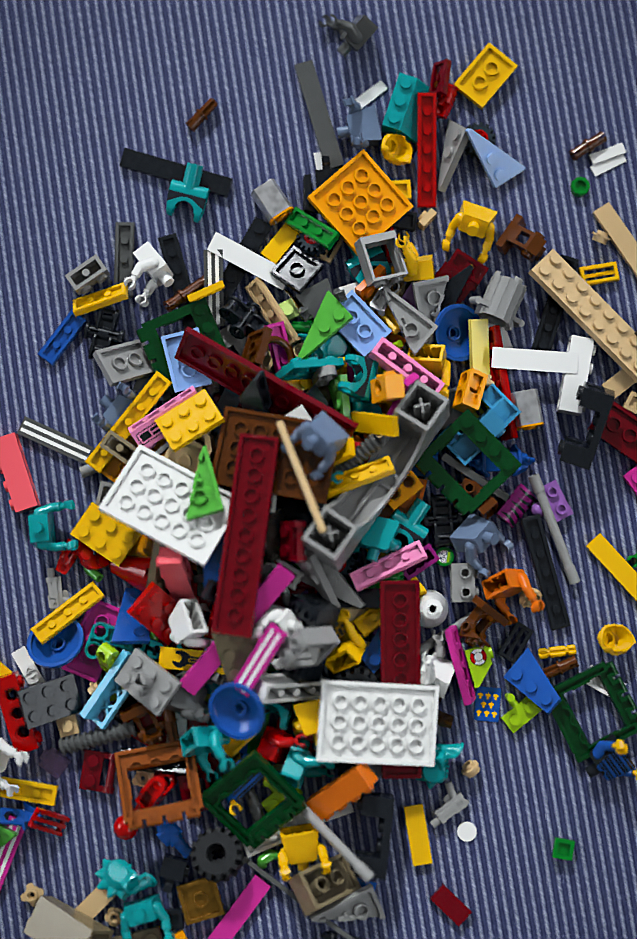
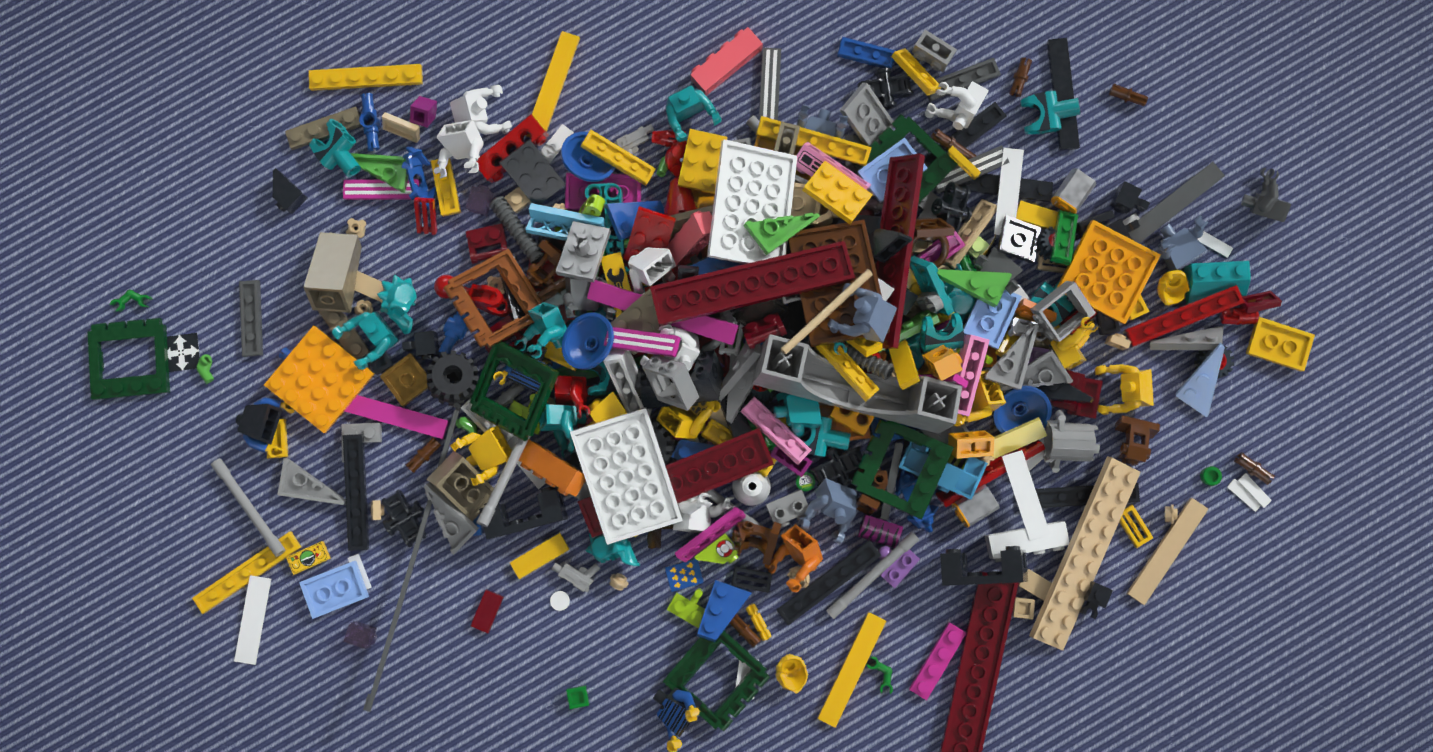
camera: 75 degrees right, 0 degrees up
(144, 205) = (1020, 77): none -> reddish brown pin
(279, 911) = (423, 455): none -> reddish brown pin
(297, 155) = (1127, 198): none -> black brick

